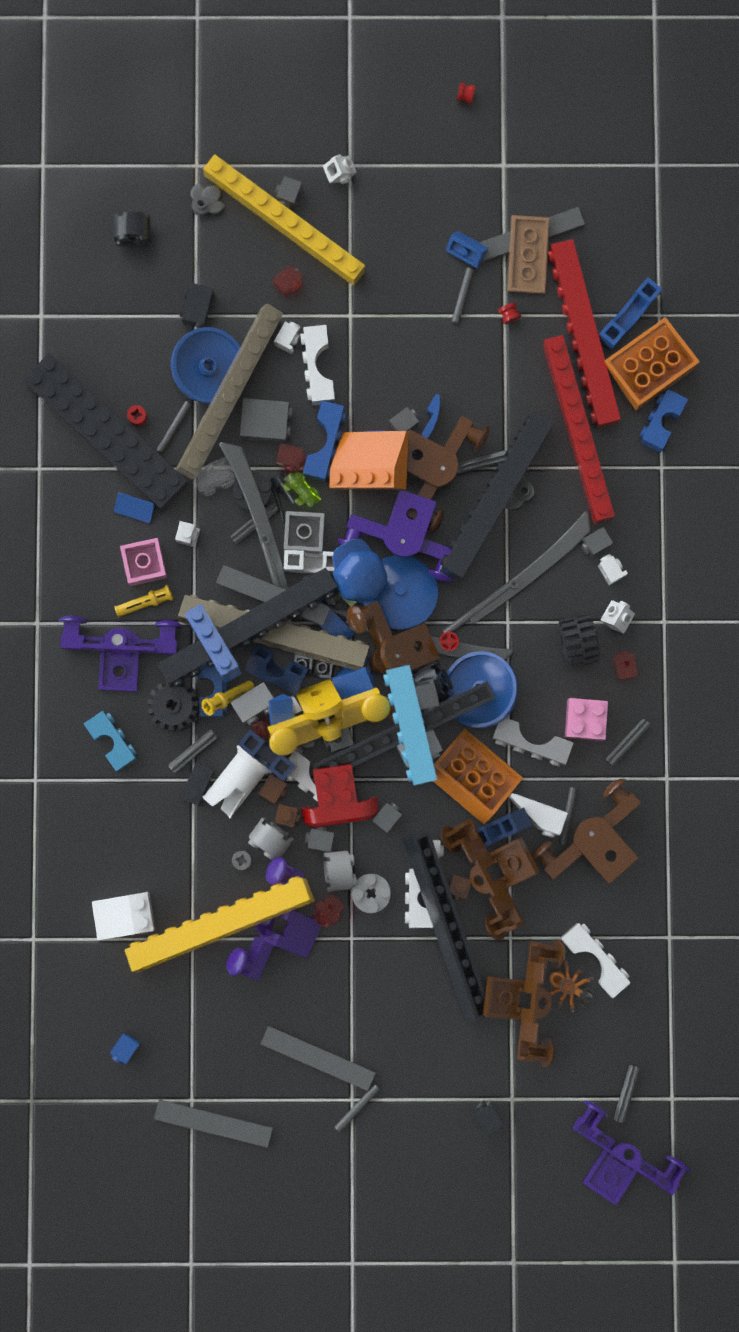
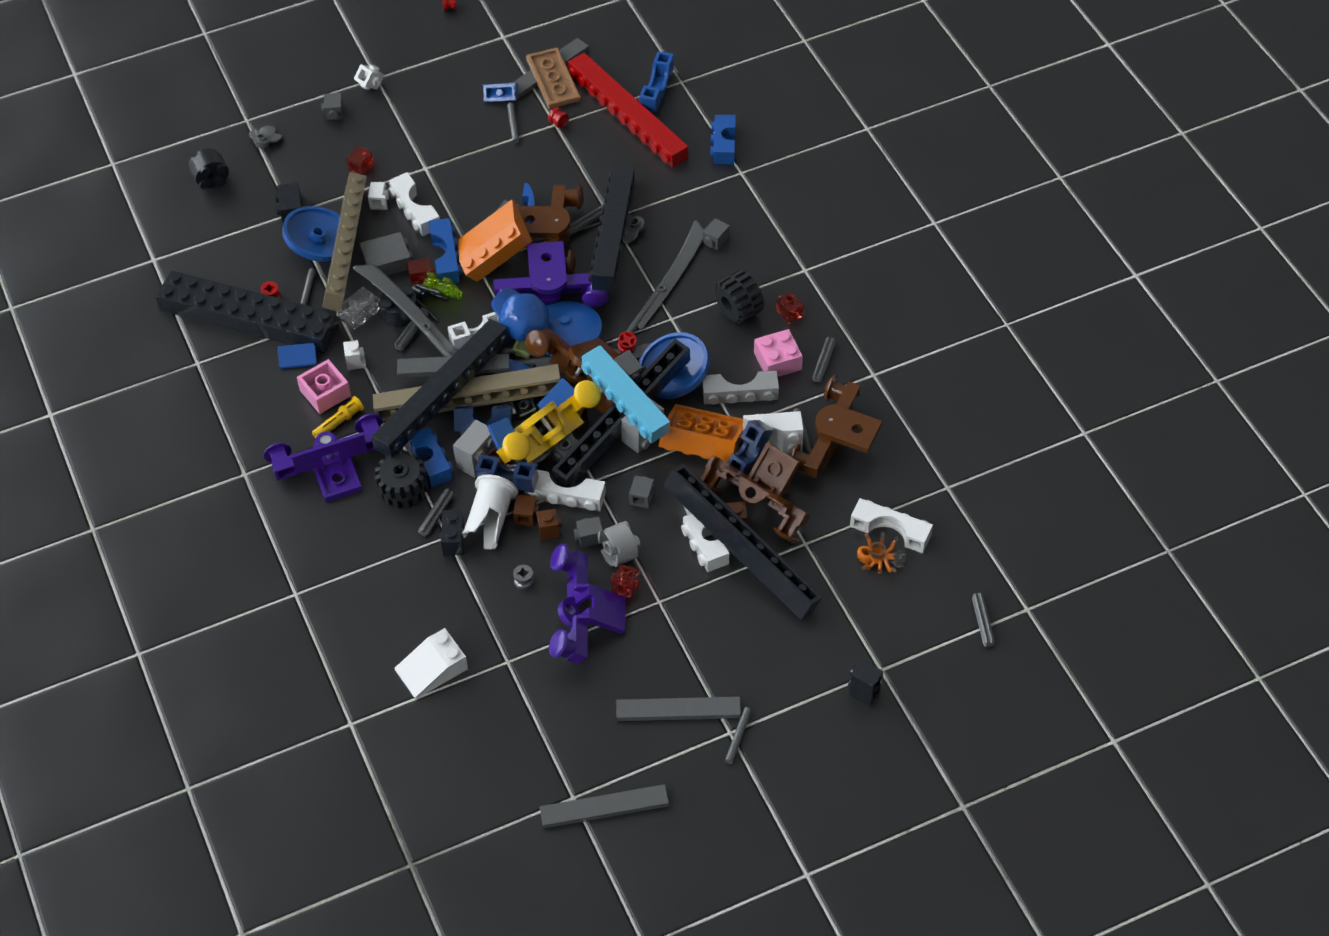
camera: 20 degrees left, 30 degrees down
(121, 754) = (342, 522): dark azure arch -> none
(124, 1048) = (484, 774): blue brick -> none
(213, 643) = (432, 408): arch -> none
(220, 924) = (526, 624): yellow brick -> none
(221, 700) = (442, 454): yellow pin -> none
(270, 839) = (540, 543): light grey brick -> none
(284, 220) = (338, 123): yellow brick -> none
(304, 531) = (458, 309): light grey brick -> none
(338, 799) = (587, 487): red piece -> none
(371, 904) = (658, 552): light grey brick -> none
(503, 1001) = (825, 579): reddish brown piece -> none
(578, 429) = (658, 168): red brick -> none
(608, 1175) = (1011, 694): dark purple piece -> none
(611, 569) = (739, 248): white brick -> none
(618, 616) = (763, 273): white brick -> none
(651, 363) = (693, 105): orange slope -> none

